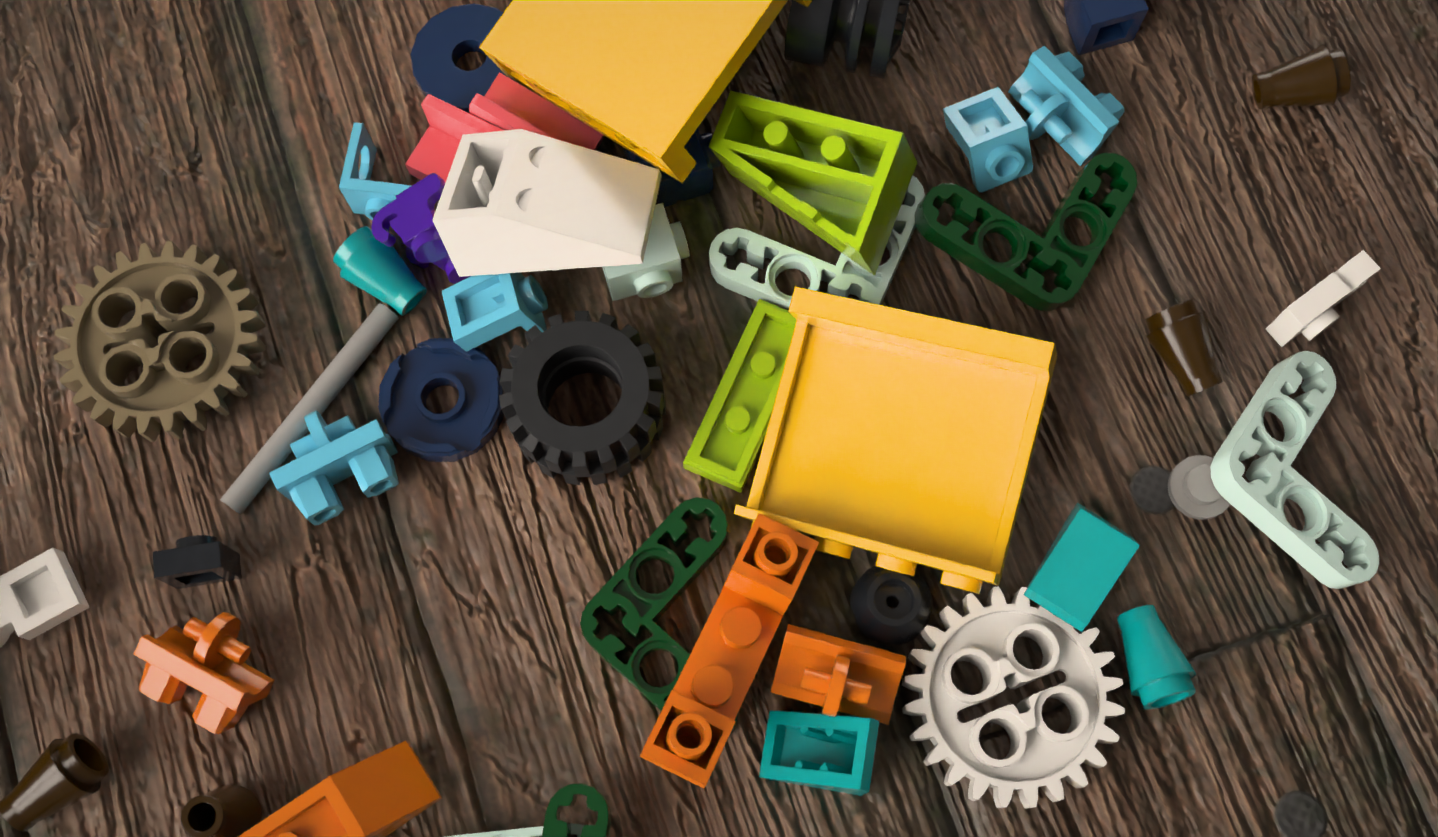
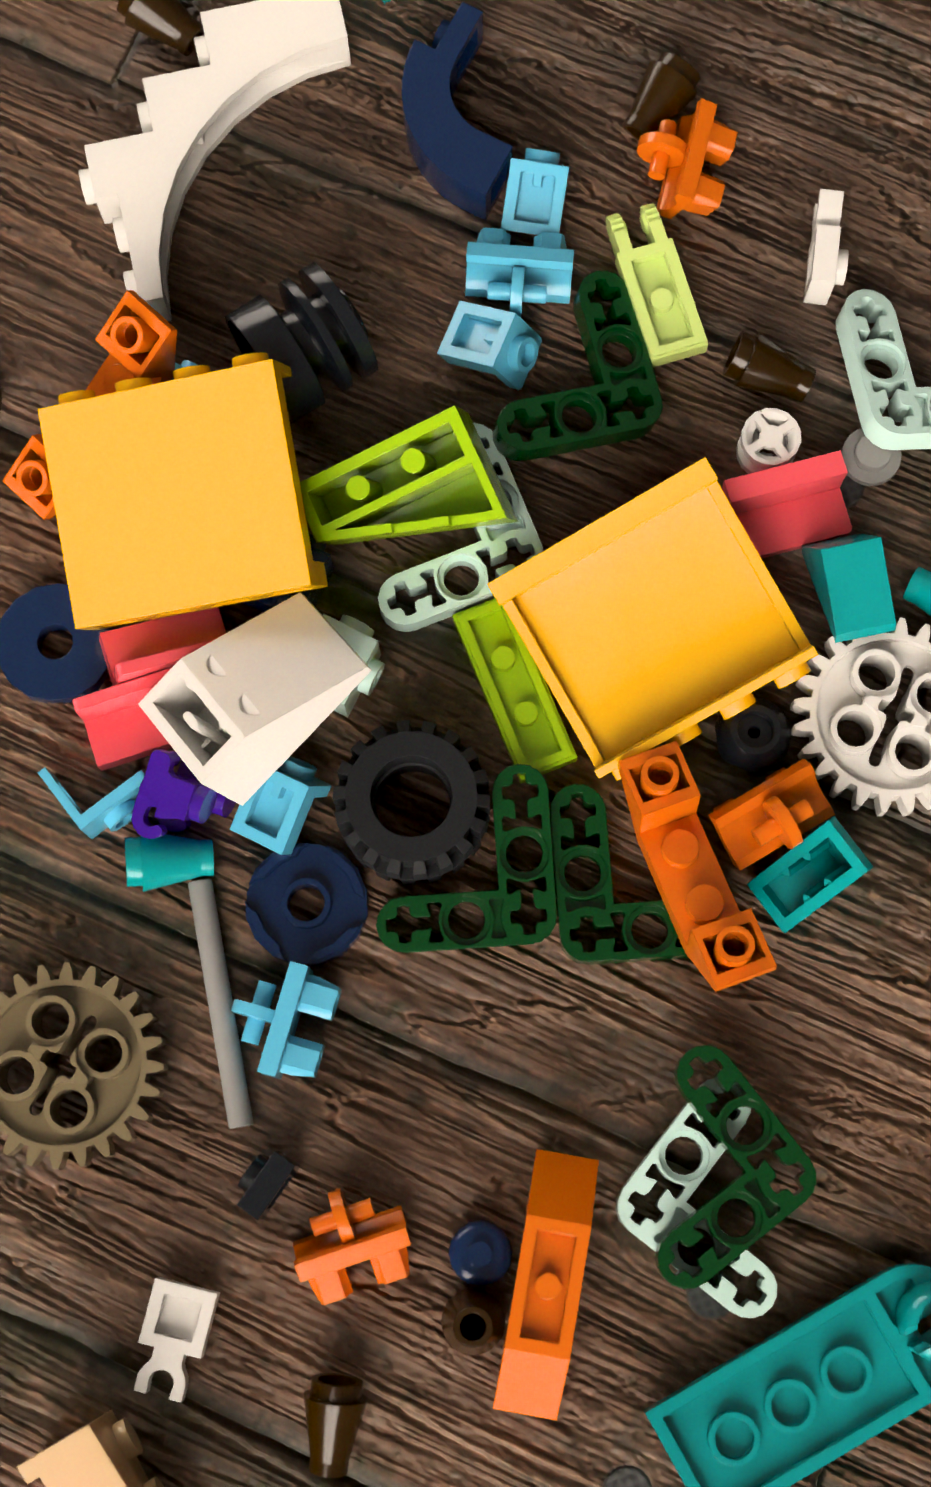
camera: 45 degrees left, 5 degrees up
(285, 771) = (480, 1253): none -> dark blue piece
(568, 532) = (494, 903): none -> dark green beam
(1096, 460) = (792, 503): none -> coral panel
(1134, 62) = (535, 193): none -> medium azure bracket
(1135, 389) = (776, 432): none -> white wheel
(1155, 215) = (657, 289): none -> yellowish green hinge
(1303, 135) = (678, 156): none -> orange hips

